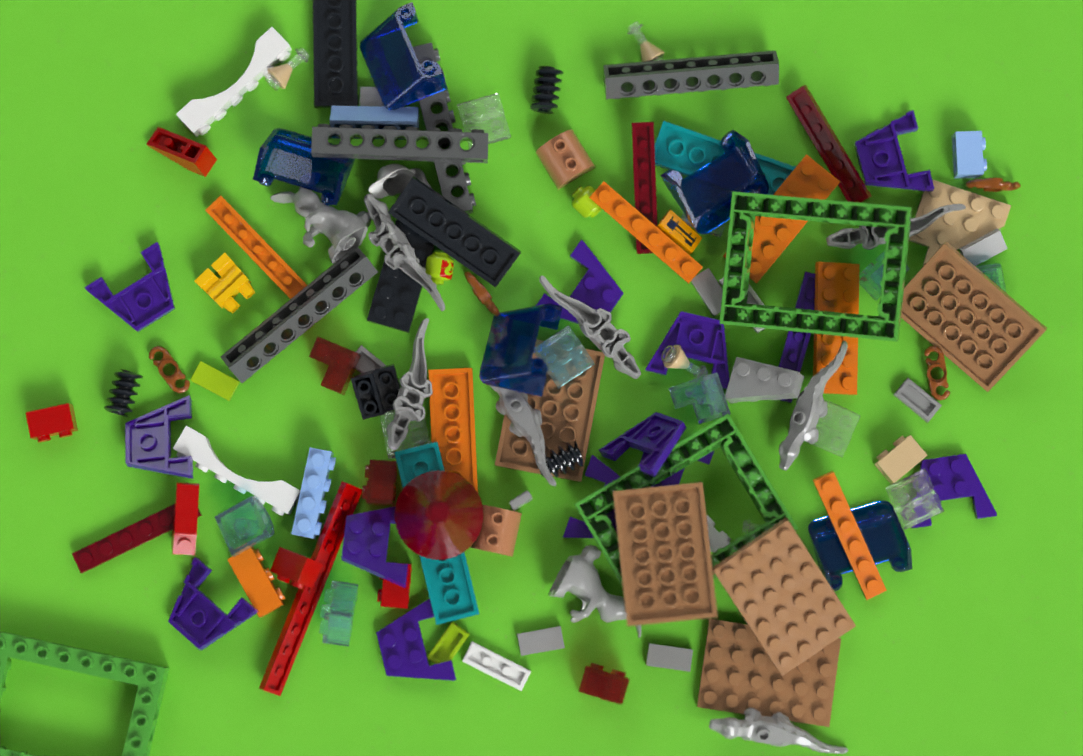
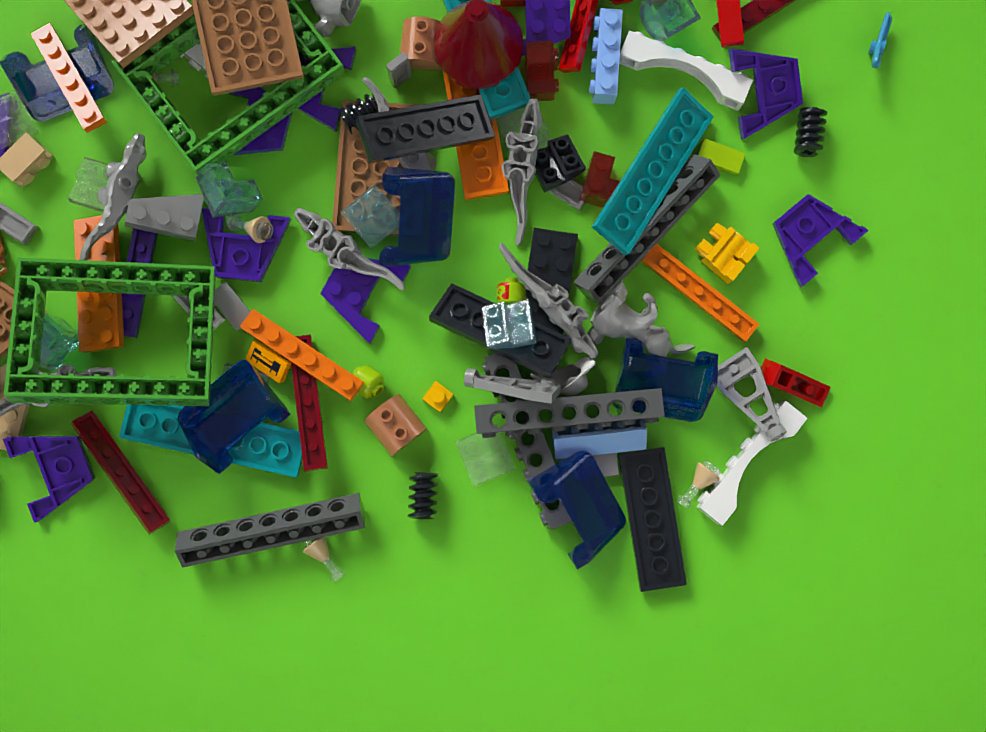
camera: 175 degrees right, 0 degrees up
(39, 472) = (877, 47): none -> dark azure piece
(51, 421) = (875, 95): red brick -> none
(168, 359) = (769, 172): dark orange piece -> none
(233, 170) = (736, 369): none -> light grey plate
(285, 366) = (652, 172): none -> teal plate
(422, 161) = (533, 390): none -> light grey plate
(445, 232) = (508, 325): none -> clear light blue slope
(481, 293) = (464, 274): dark orange piece -> none
(500, 428) = (424, 128): none -> black plate
(521, 181) = (438, 396): none -> yellow plate
(653, 436) = (271, 148): dark purple wing -> none
(775, 234) = (139, 425): orange plate -> none

